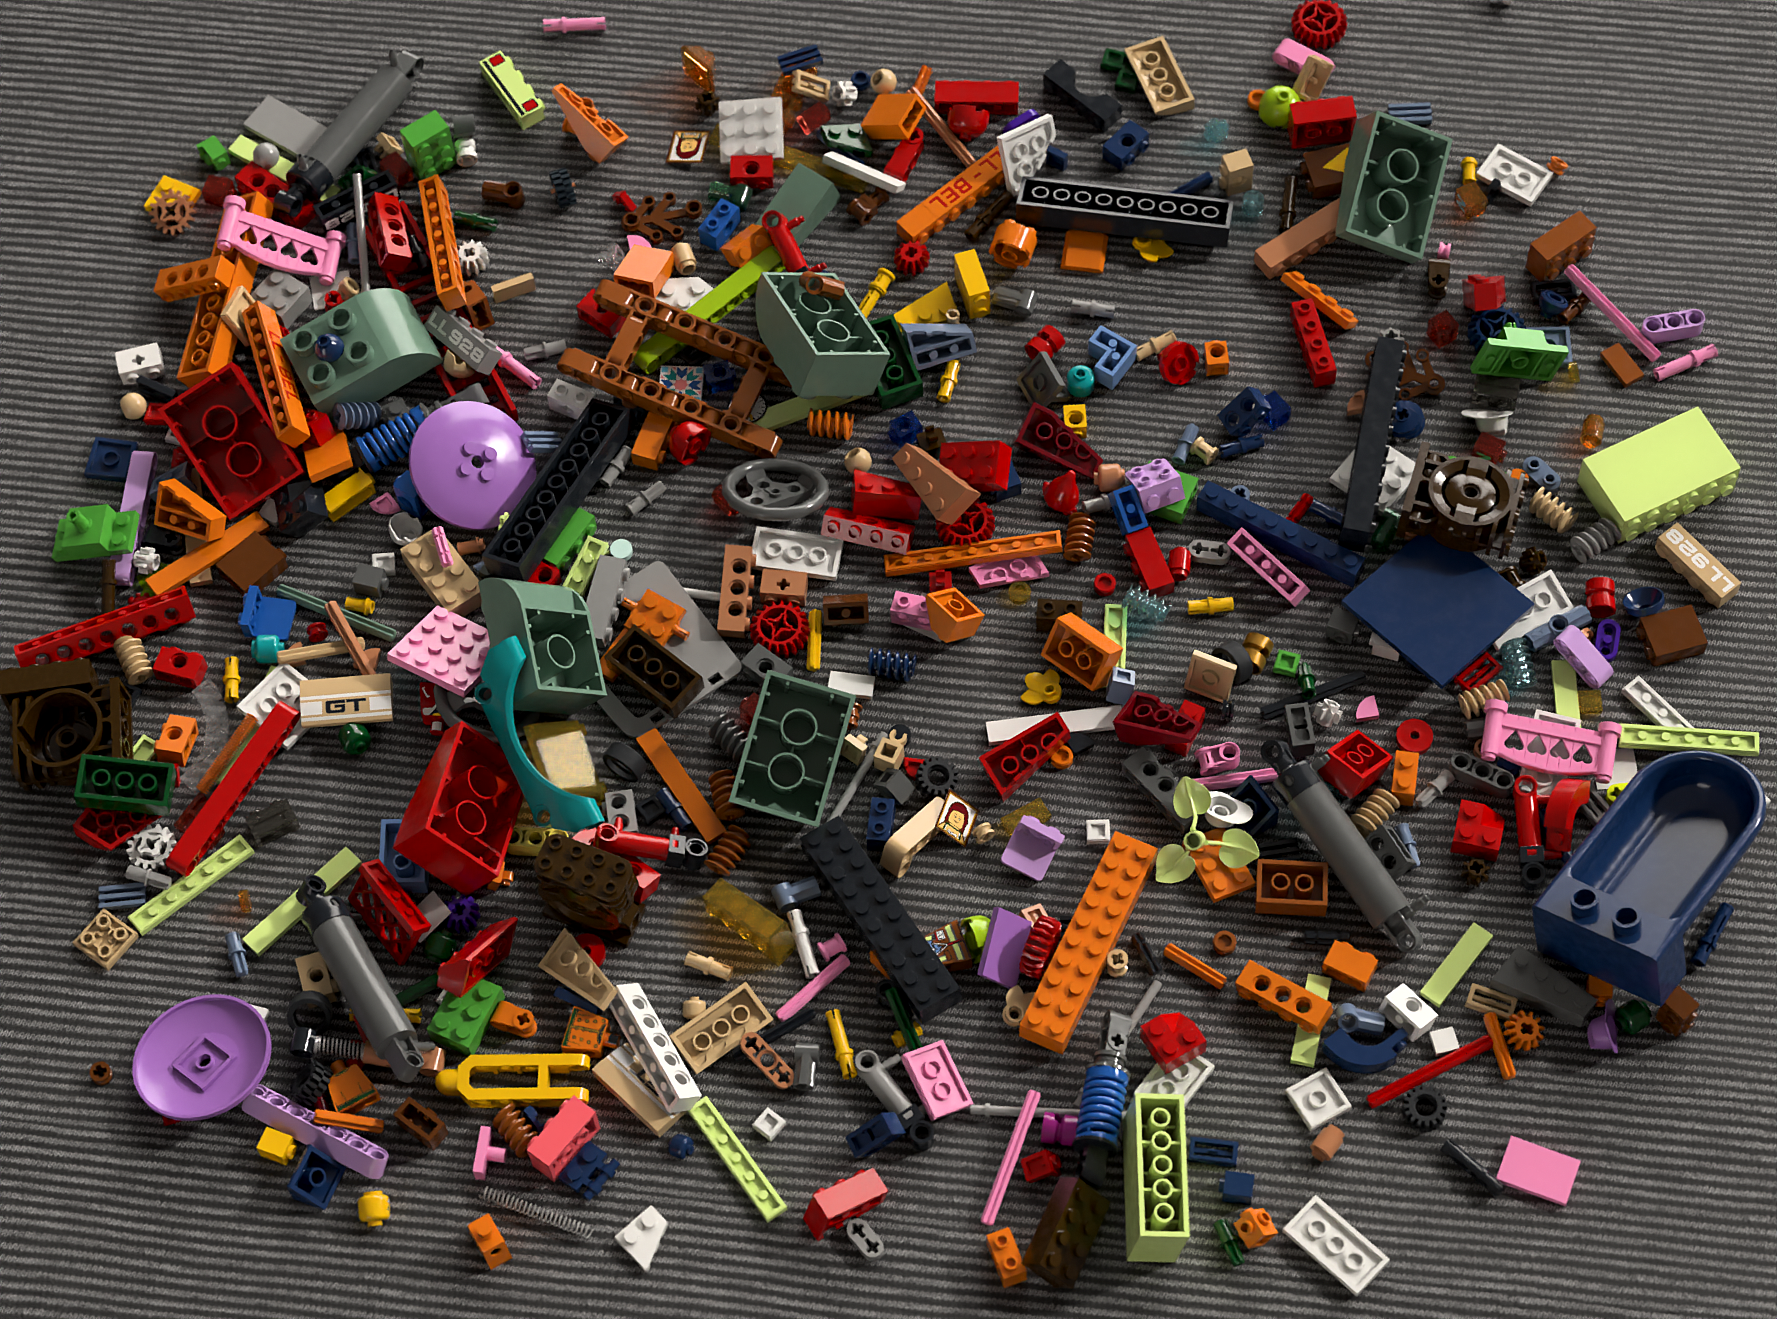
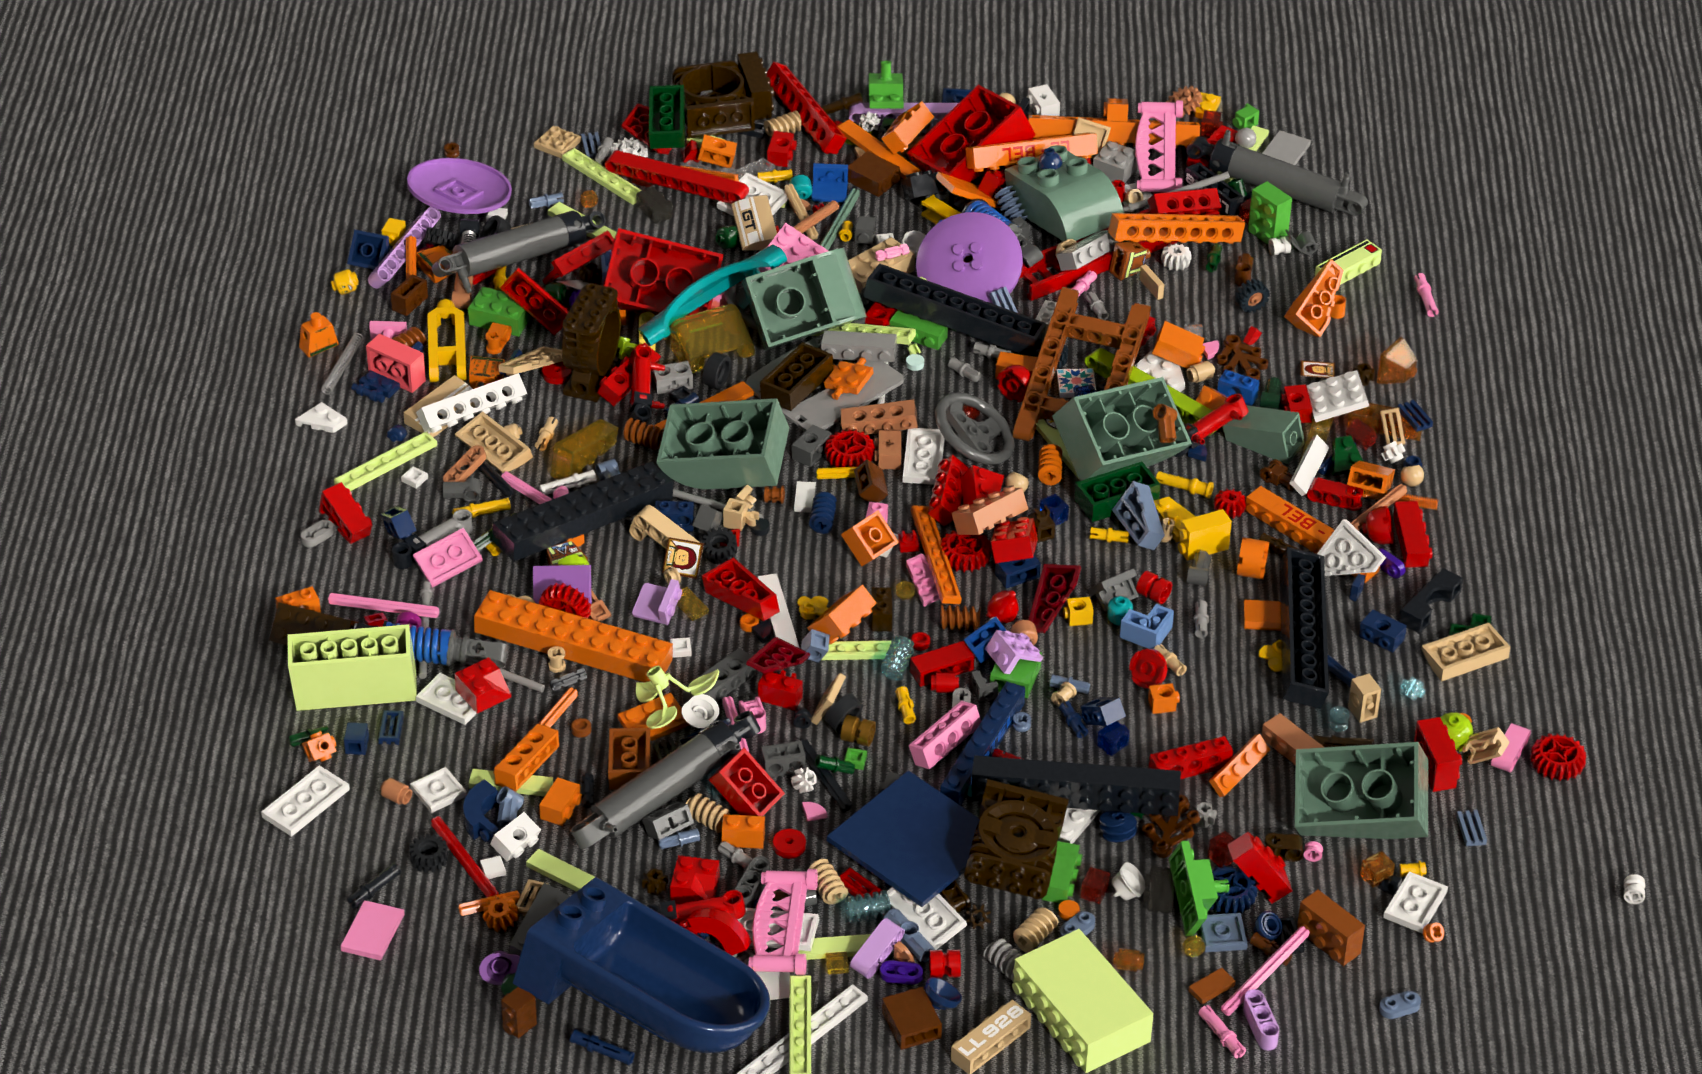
camera: 80 degrees right, 20 degrees down
(1189, 529) = (983, 690): none -> dark grey bracket
(1646, 207) = (1403, 1004): none -> sand blue plate

